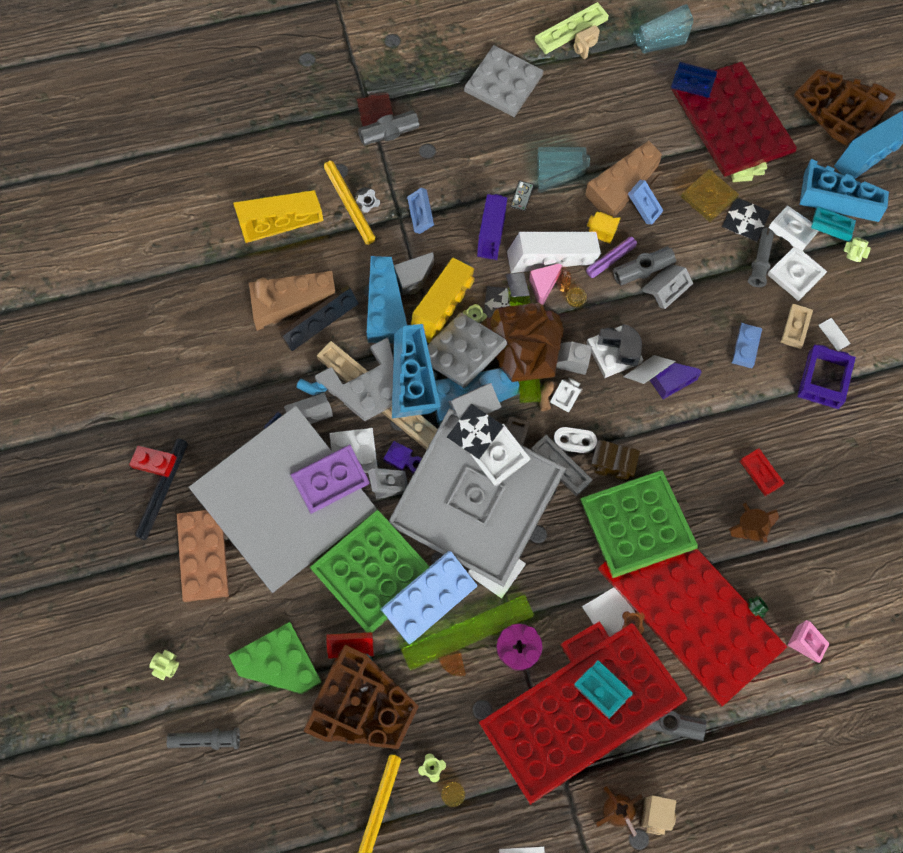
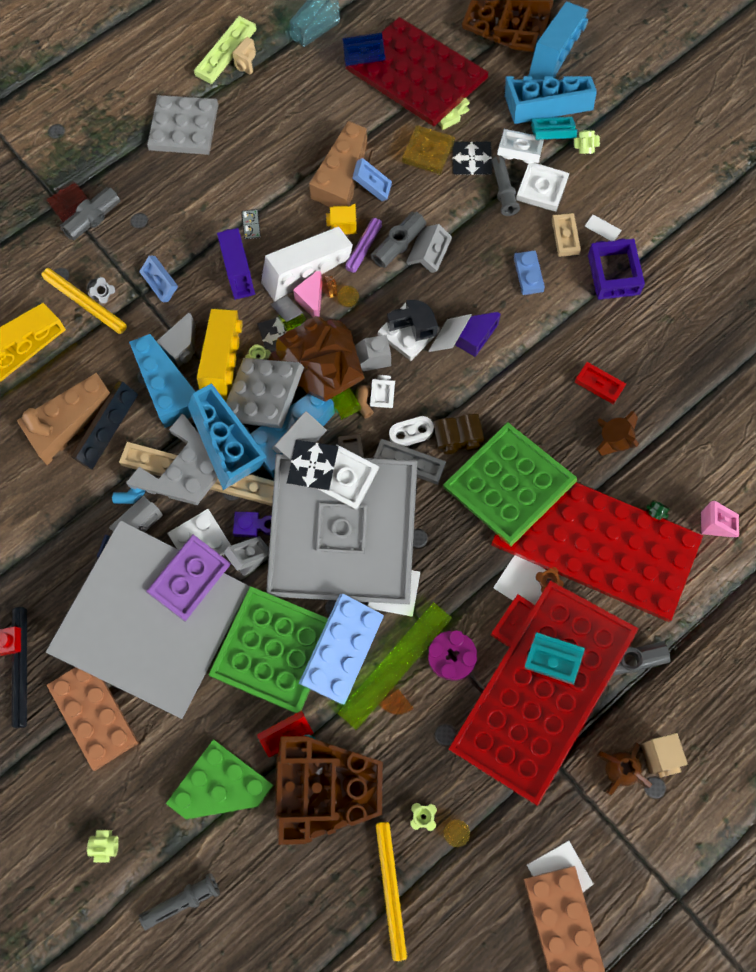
camera: 20 degrees left, 0 degrees up
(560, 165) = (274, 180): clear light blue slope -> none

